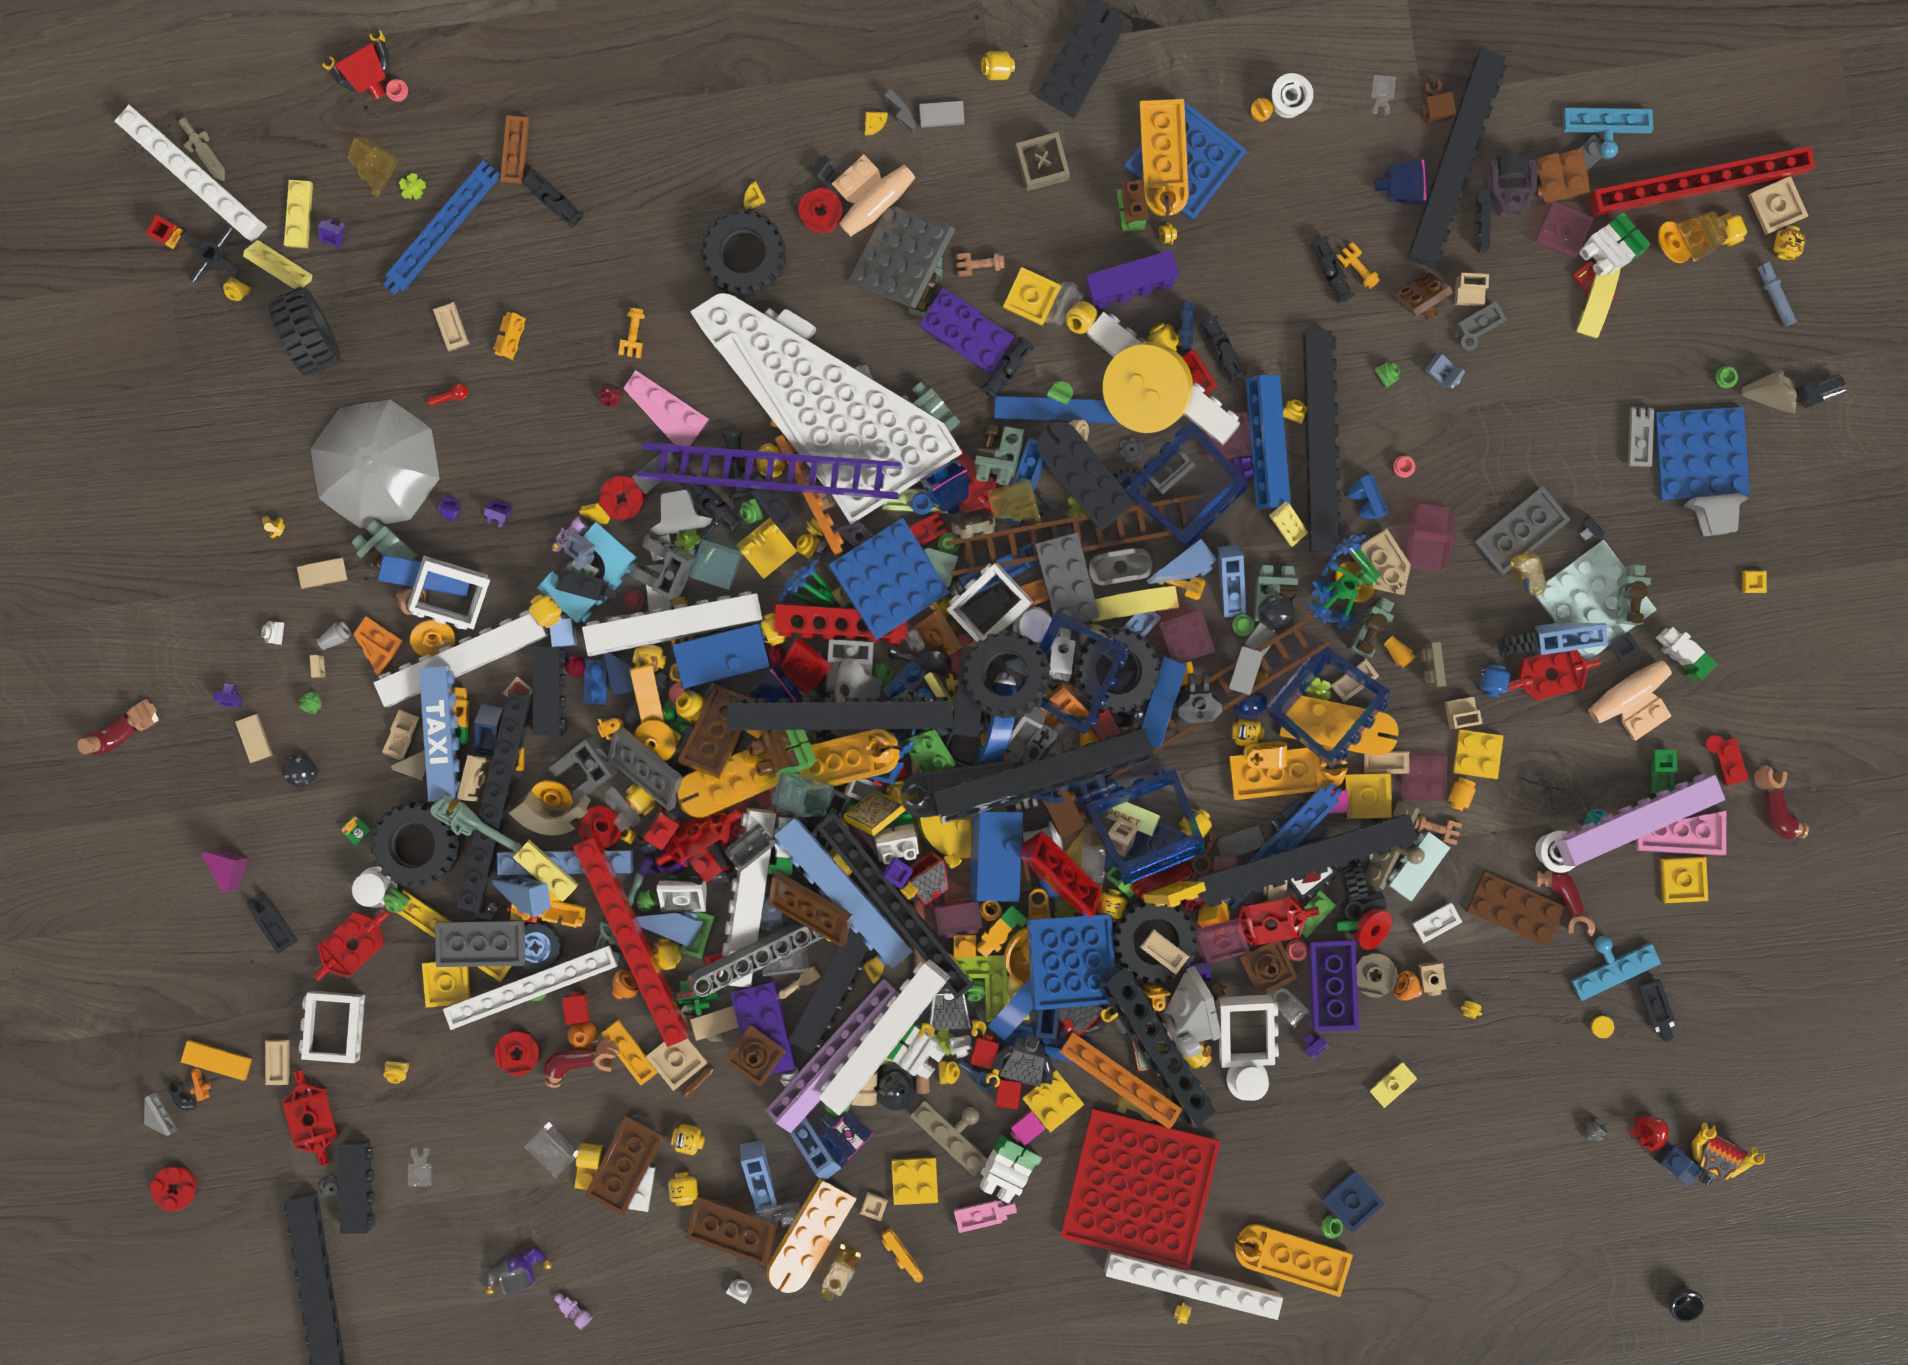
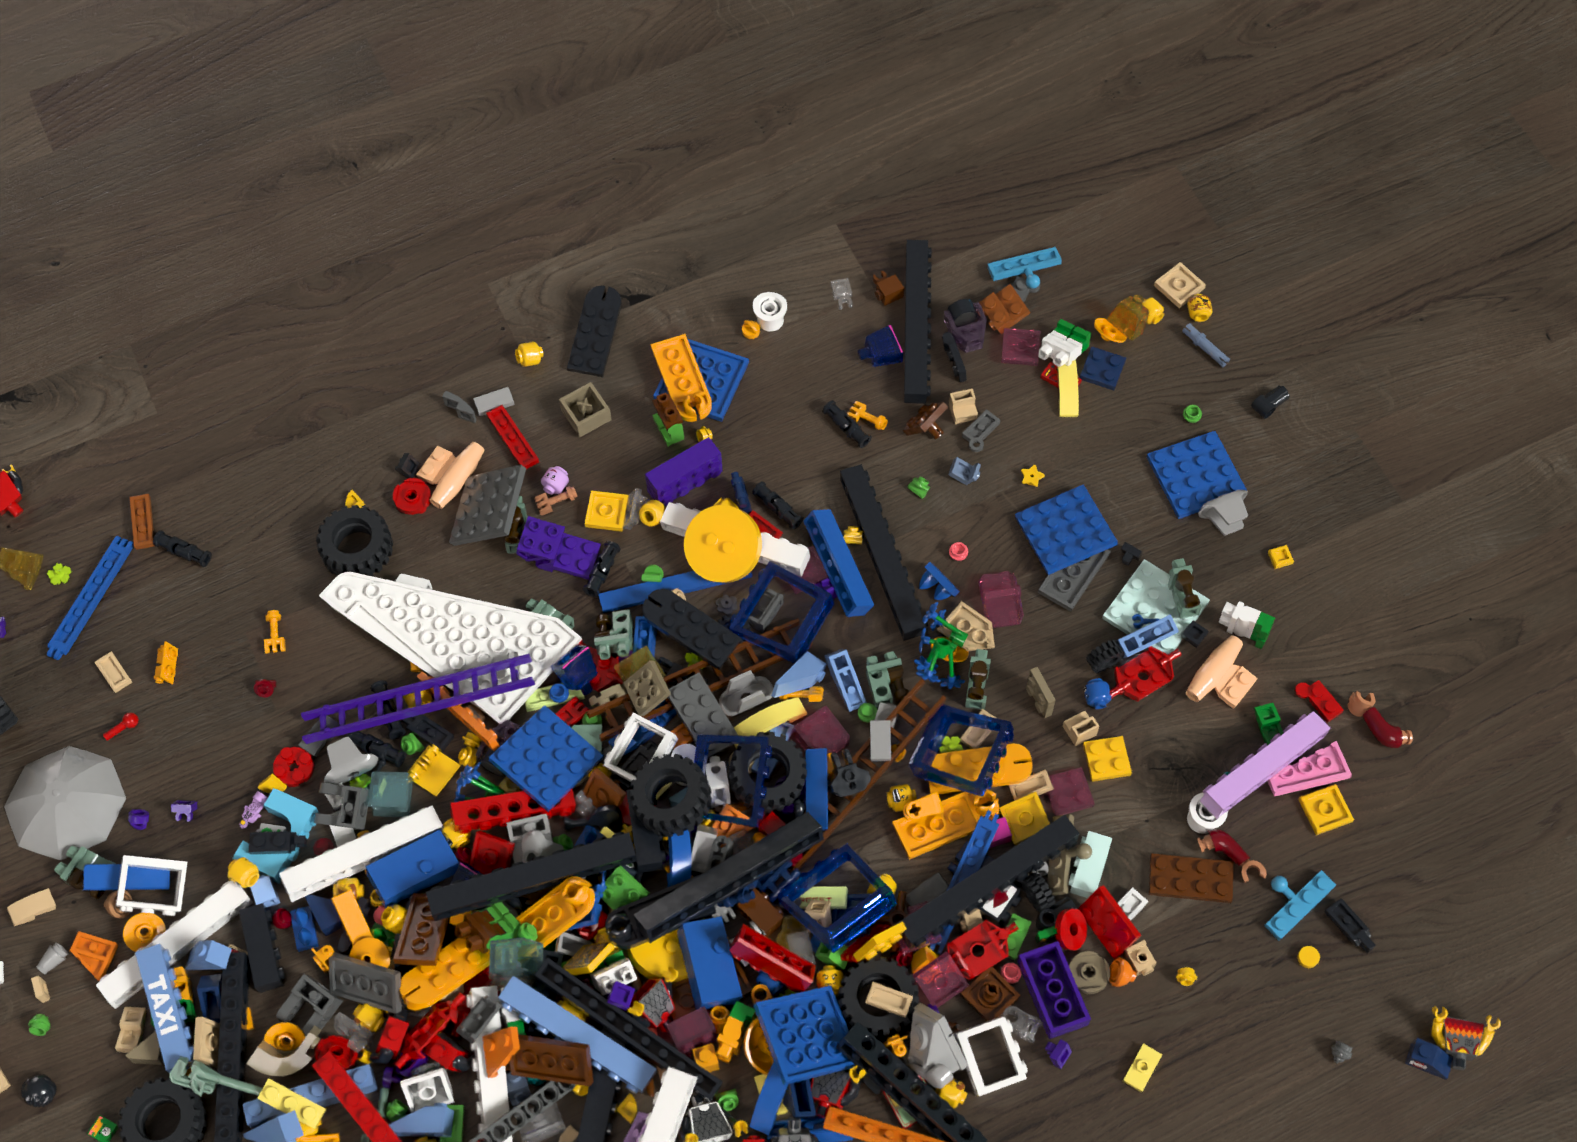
camera: 15 degrees left, 25 degrees down
(397, 90) = (32, 505): coral plate -> none
(491, 690) = (208, 956): none -> medium blue slope
(580, 549) = (264, 813): sand blue bracket -> none
(670, 414) = (316, 684): bright pink wing -> none
(684, 877) = (425, 1069): none -> clear tile
(763, 884) = (499, 1049): none -> orange wing
(820, 770) = (527, 931): none -> bright green plate
(874, 122) = (440, 422): yellow tile -> none
(951, 169) = (512, 437): none -> red plate
(984, 241) = (554, 480): none -> lavender head
(995, 975) = (741, 1077): lime plate -> none
(1019, 537) = (651, 688): none -> dark tan plate
(1248, 1082) = (1008, 1104): white piece -> none
(1251, 707) = (896, 773): clear blue hair -> none
(1276, 612) = (891, 689): black piece -> none
(1288, 524) = (877, 619): light yellow plate -> none
(1400, 653) = (1009, 695): light orange cone -> none
(1414, 934) = (1109, 922): none -> red plate
(1421, 823) = (1104, 829): nougat hinge -> none
(1462, 794) = (1105, 793): light orange brick -> none
(1517, 405) = (1032, 480): none -> yellow plate
(1531, 479) = (1066, 529): none -> blue plate
(1531, 572) = (1094, 599): clear yellow leg -> none
(1577, 616) = (1142, 621): none -> blue hand
(1640, 437) = (1142, 476): light grey hinge -> none
(1647, 286) = (1102, 368): none -> dark blue plate
(1651, 1132) = (1391, 1035): red piece -> none
(1701, 181) = (1112, 283): red brick -> none
(1773, 391) = (1233, 412): dark tan hat -> none

